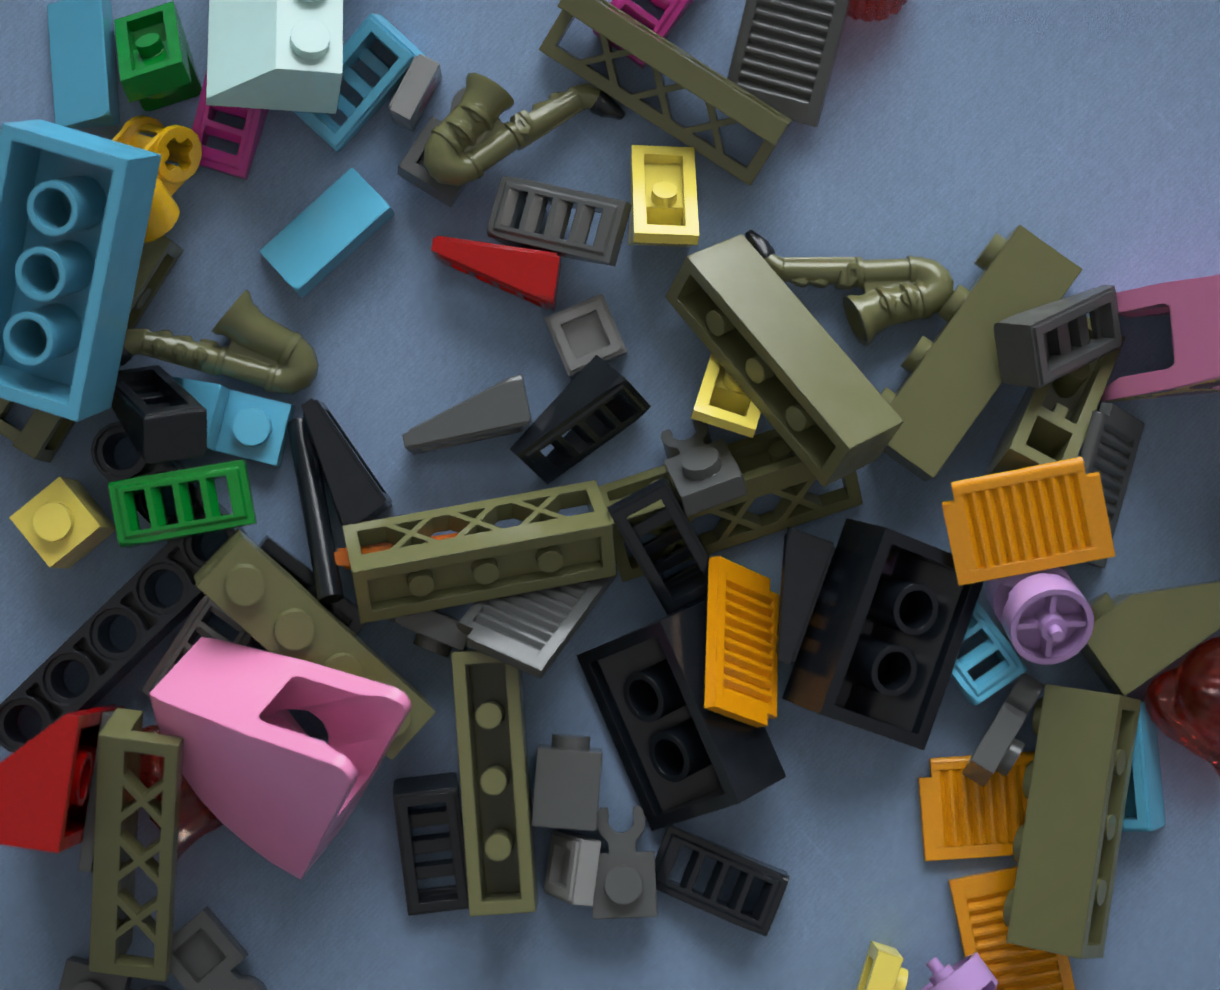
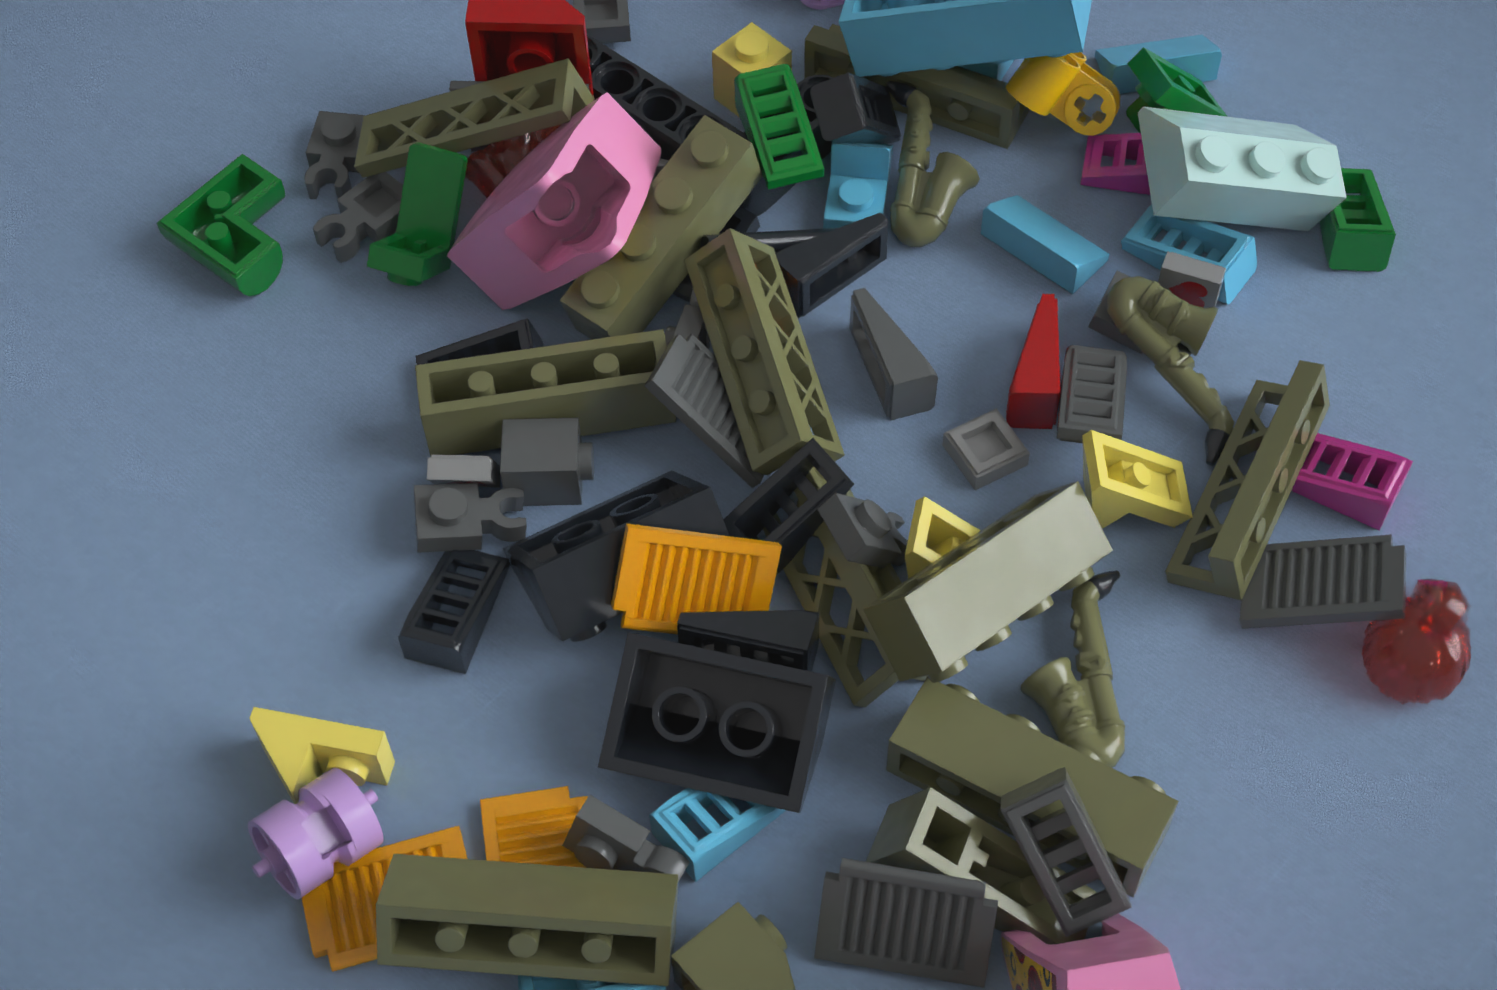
camera: 85 degrees right, 30 degrees down
(249, 904) = (425, 217): none -> green bracket
(594, 407) = (942, 441): black slope -> none
(1027, 521) = (854, 819): light orange window -> none
(1042, 614) = (762, 859): lavender wheel -> none

